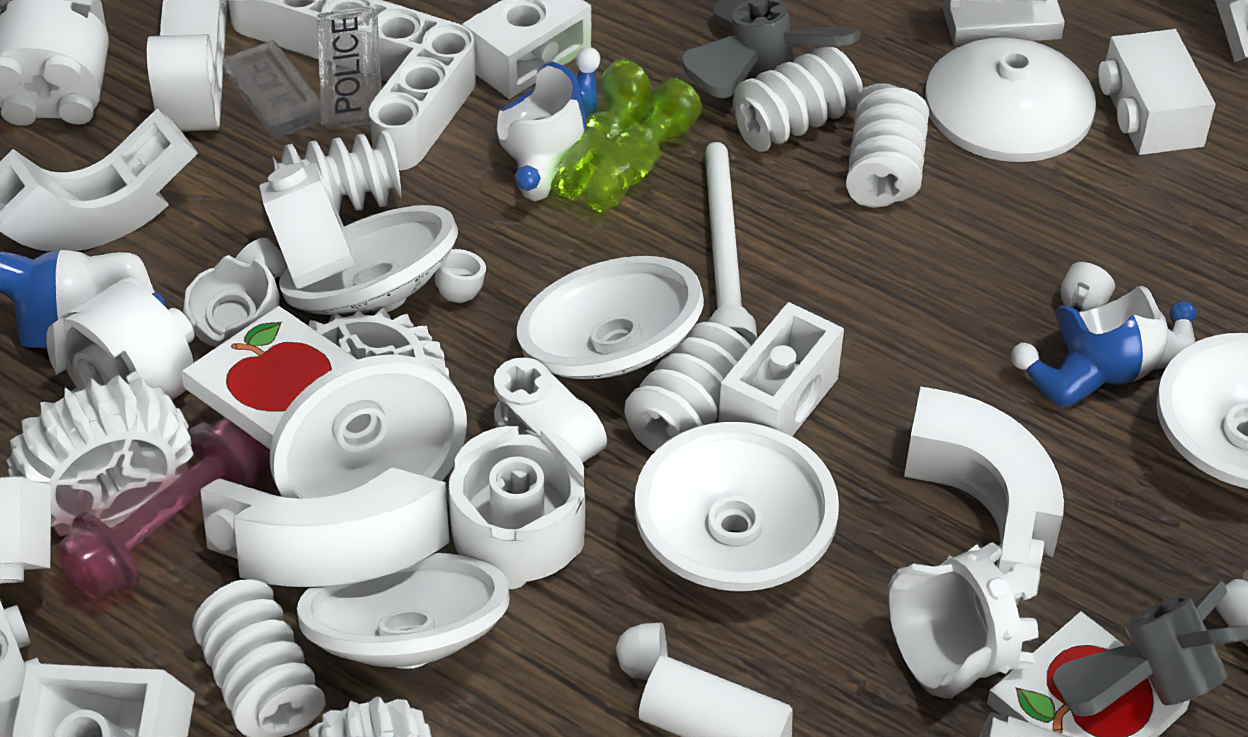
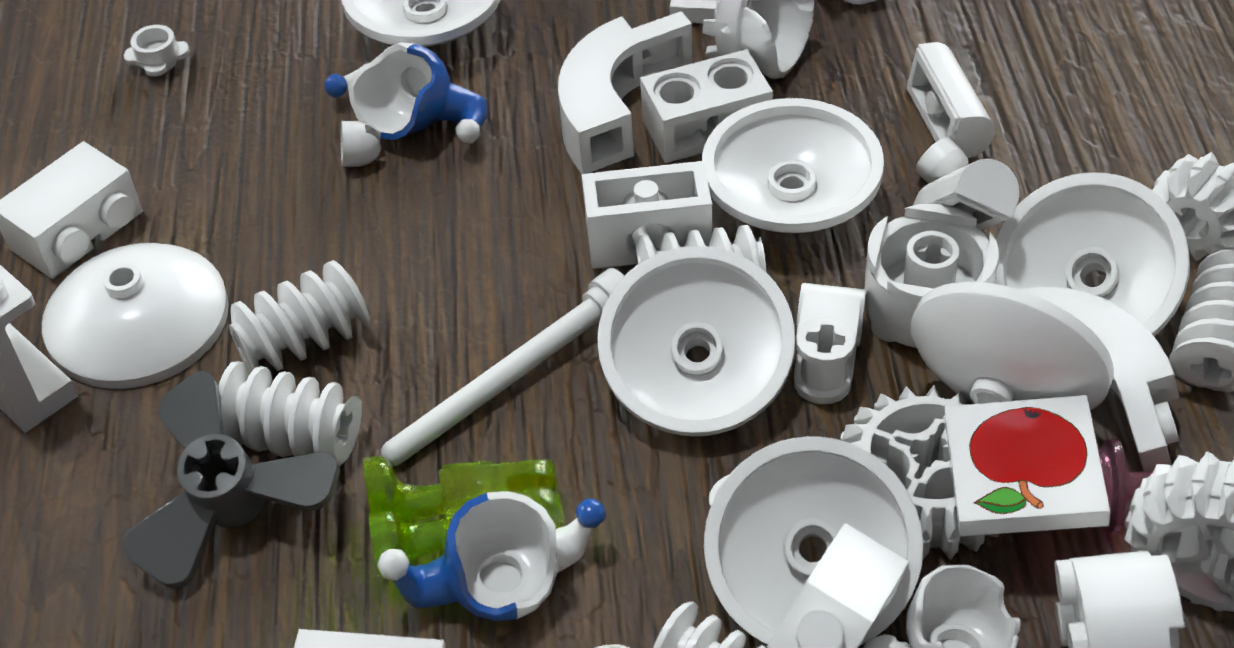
camera: 125 degrees left, 0 degrees up
(556, 567) = (981, 188): none -> white brick
(895, 524) = (691, 100): none -> white brick

